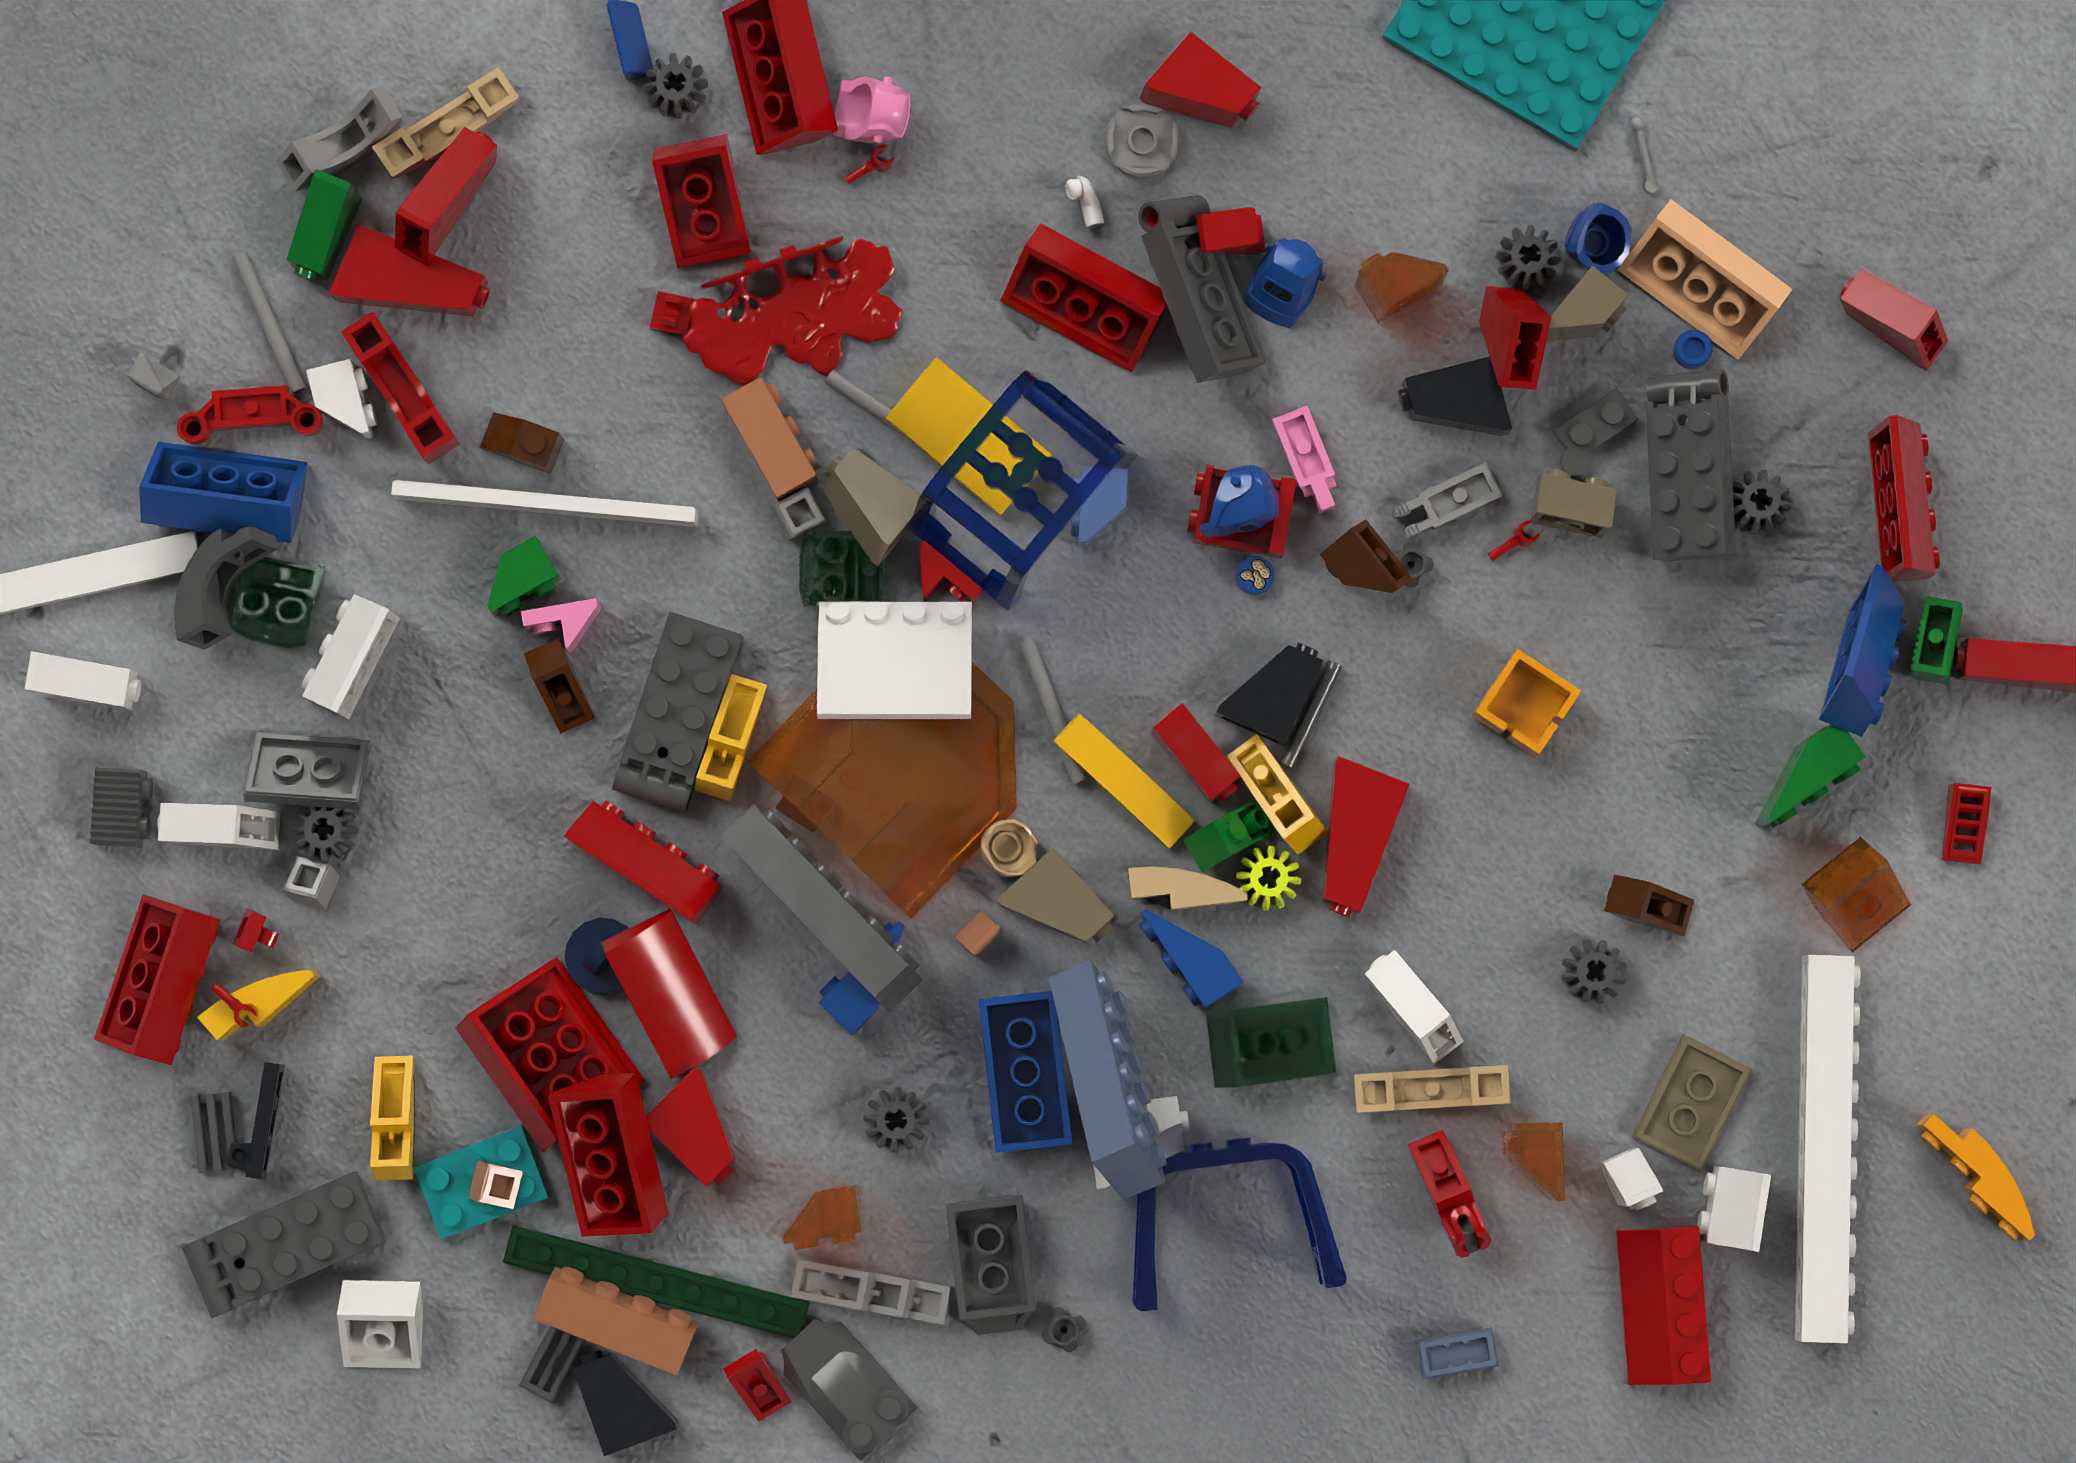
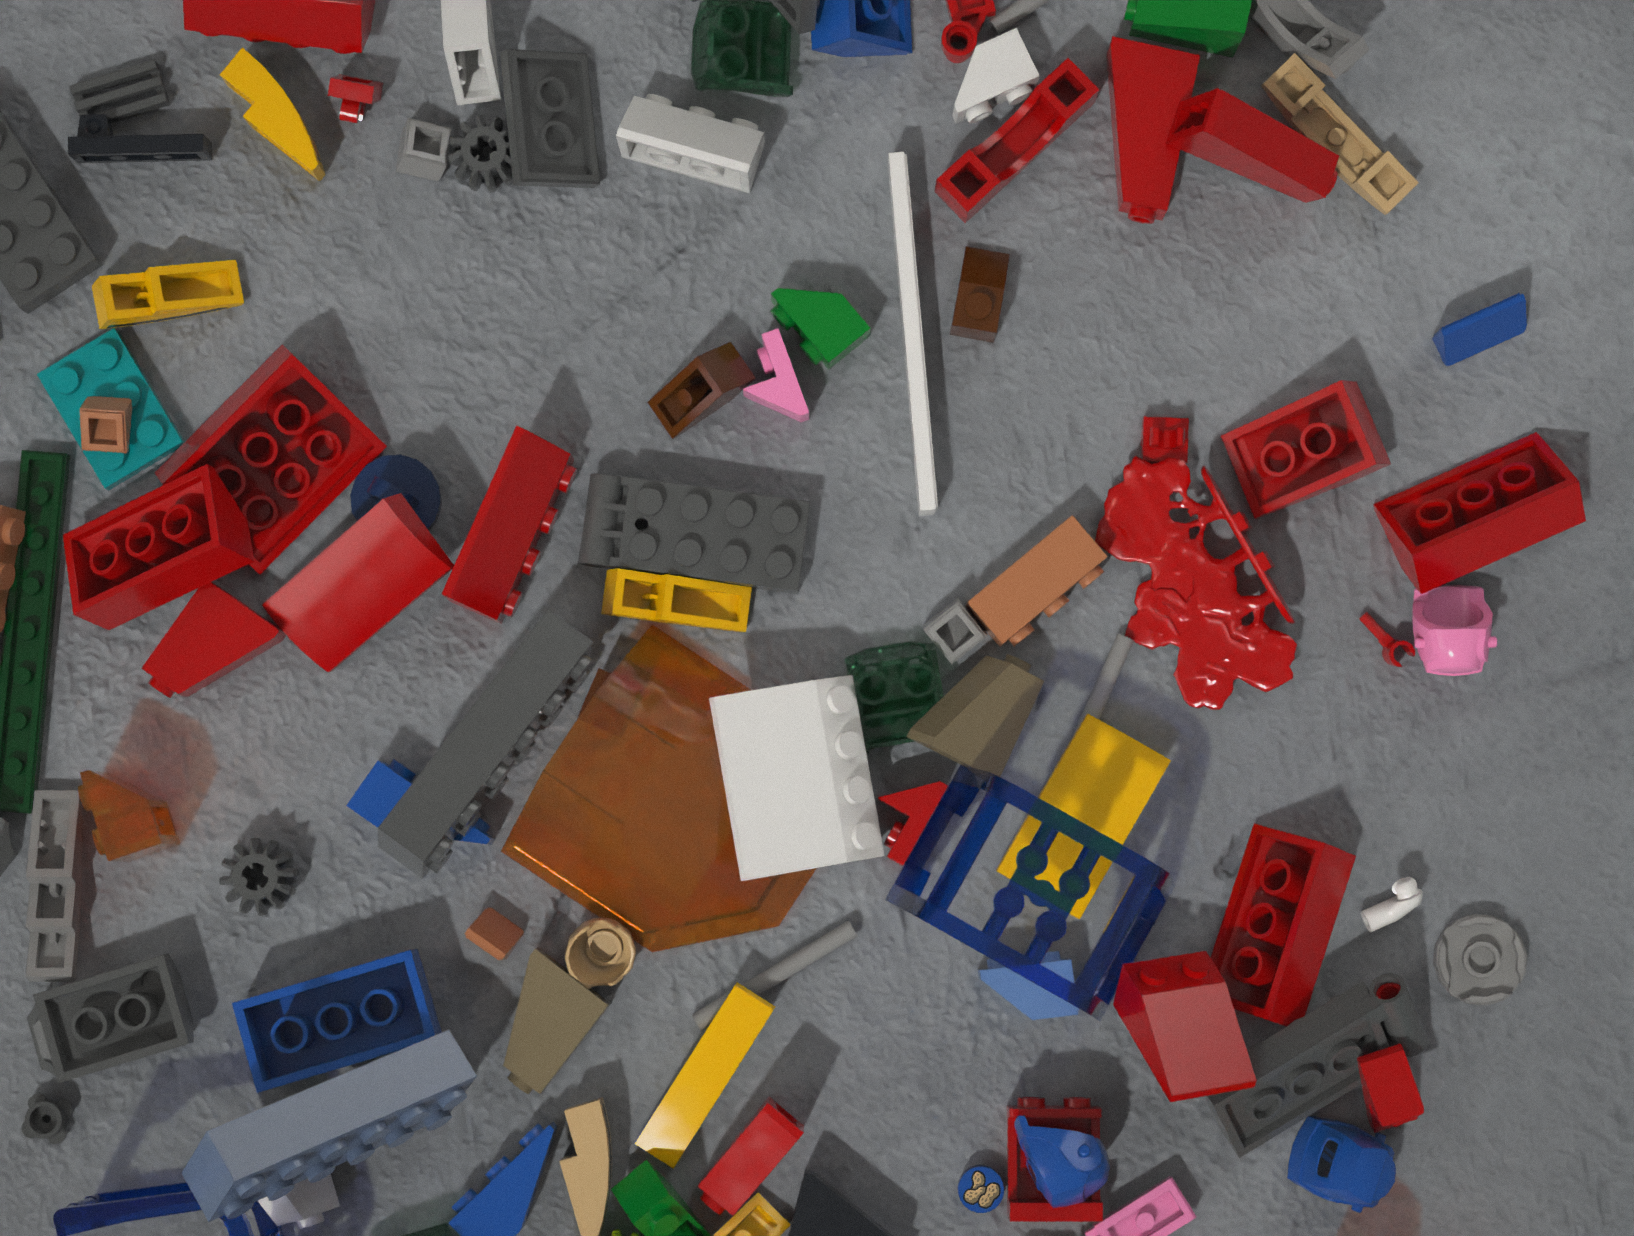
camera: 80 degrees right, 0 degrees up
(234, 1004) = (260, 88): red hand -> none
(670, 98) = (1451, 401): dark grey gear -> none
(1150, 384) = (1184, 1025): none -> red slope
(1202, 85) = (1561, 1021): red slope -> none

